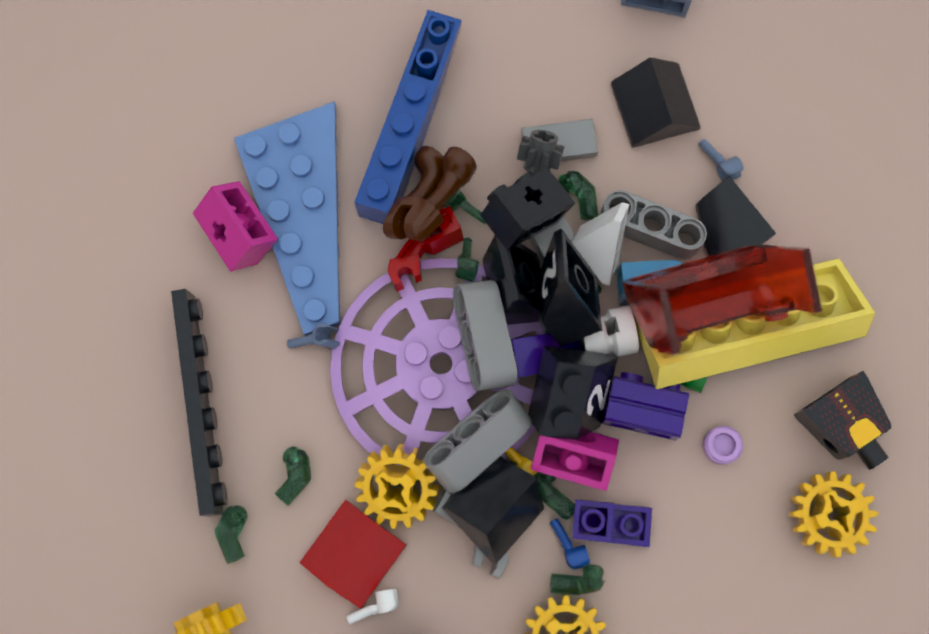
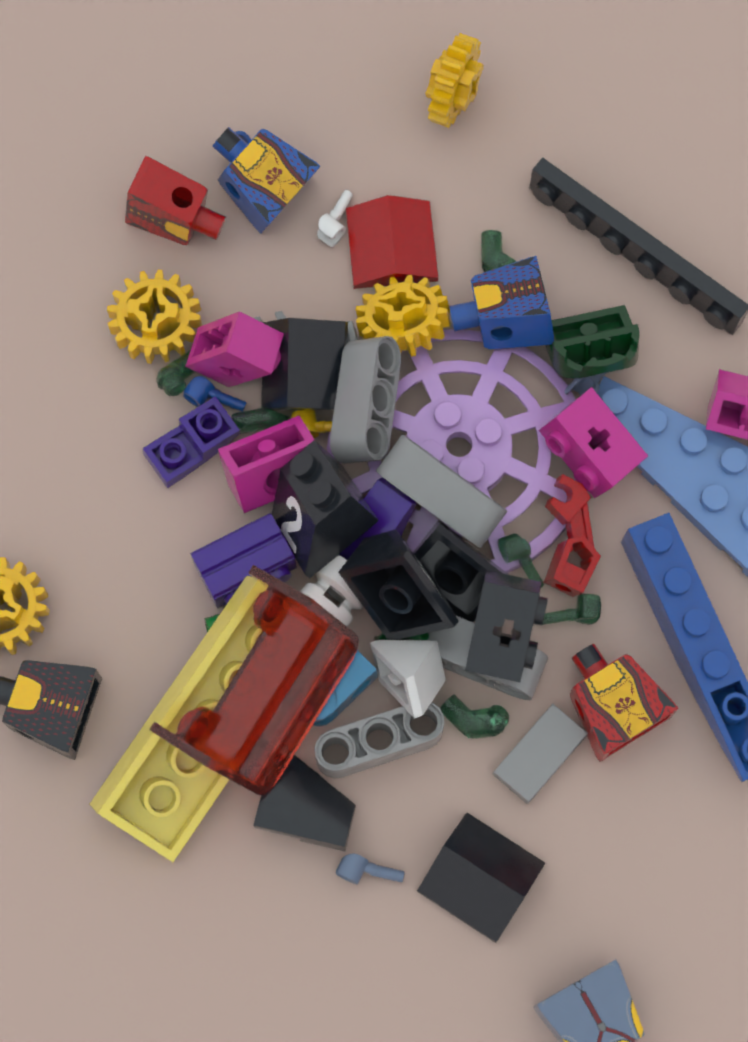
camera: 135 degrees right, 5 degrees down
(228, 531) = (510, 175): clear green arm -> none
(292, 357) = (594, 343): none -> dark green slope
(322, 429) = (508, 307): none -> blue torso
(356, 290) = (613, 447): none -> dark pink brick
(442, 176) = (603, 546): reddish brown piece -> none
(489, 127) = (616, 701): none -> torso
(536, 553) = (235, 350): none -> dark pink brick
(540, 151) = (544, 710): dark grey gear -> none
(722, 445) = (146, 592): lavender tile -> none

